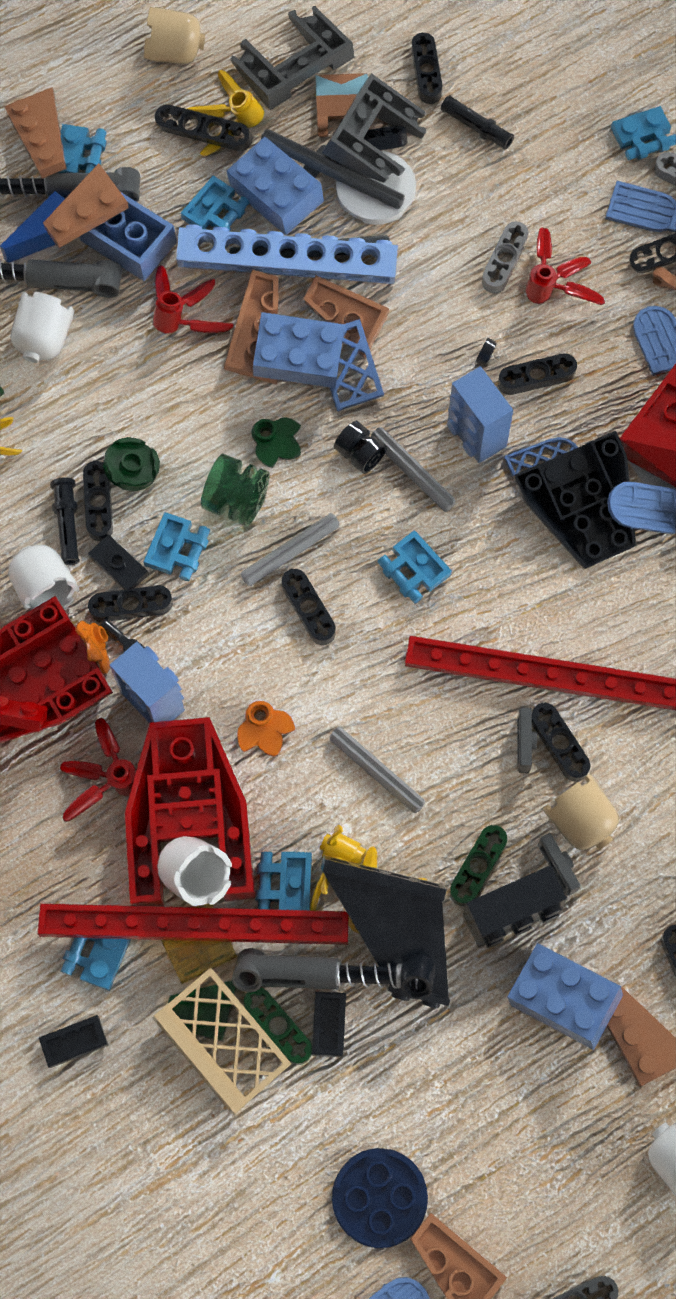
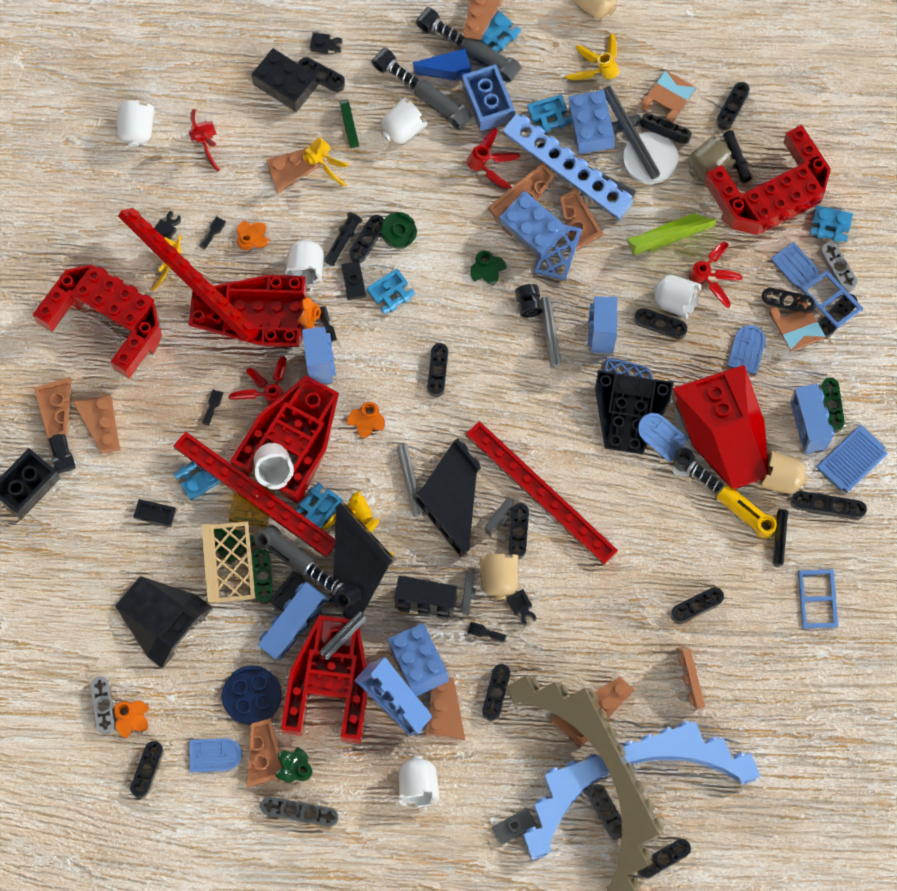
camera: 35 degrees right, 0 degrees up
(47, 838) = (214, 401): none -> black piece
(85, 208) = (473, 69): nougat wing -> none
(121, 595) = (341, 299): black beam -> none
(182, 1178) = (160, 616): none -> black wedge
(205, 123) = (576, 62): black beam -> none
(231, 488) = (442, 280): clear green wheel -> none
(290, 549) = (450, 332): light grey axle -> none
(326, 48) = (682, 59): dark grey wedge -> none
(366, 1059) = (293, 620): none -> medium blue wedge
(372, 101) = (686, 106): dark grey wedge -> none
(420, 560) = (516, 384): dark azure plate -> none
(445, 756) = (450, 496): none -> black piece
(451, 1033) = (336, 642): none -> dark grey axle
(453, 142) = (708, 157): none -> dark tan cylinder
(461, 1087) = (327, 678): none -> red wedge
(466, 260) = (669, 233): none -> lime wedge
(481, 842) = (429, 557): dark green beam -> none
(486, 352) = (640, 292): black tile -> none
(503, 1254) = (291, 766): none -> dark green plate
(505, 268) = (698, 237): light grey beam -> none
(534, 325) = (676, 295): none -> white cylinder
(567, 139) = (777, 198): none -> red wedge
(574, 1067) = (393, 696): none -> medium blue wedge
(608, 902) = (480, 631): none -> black piece
(633, 834) = (521, 604): none -> black plate

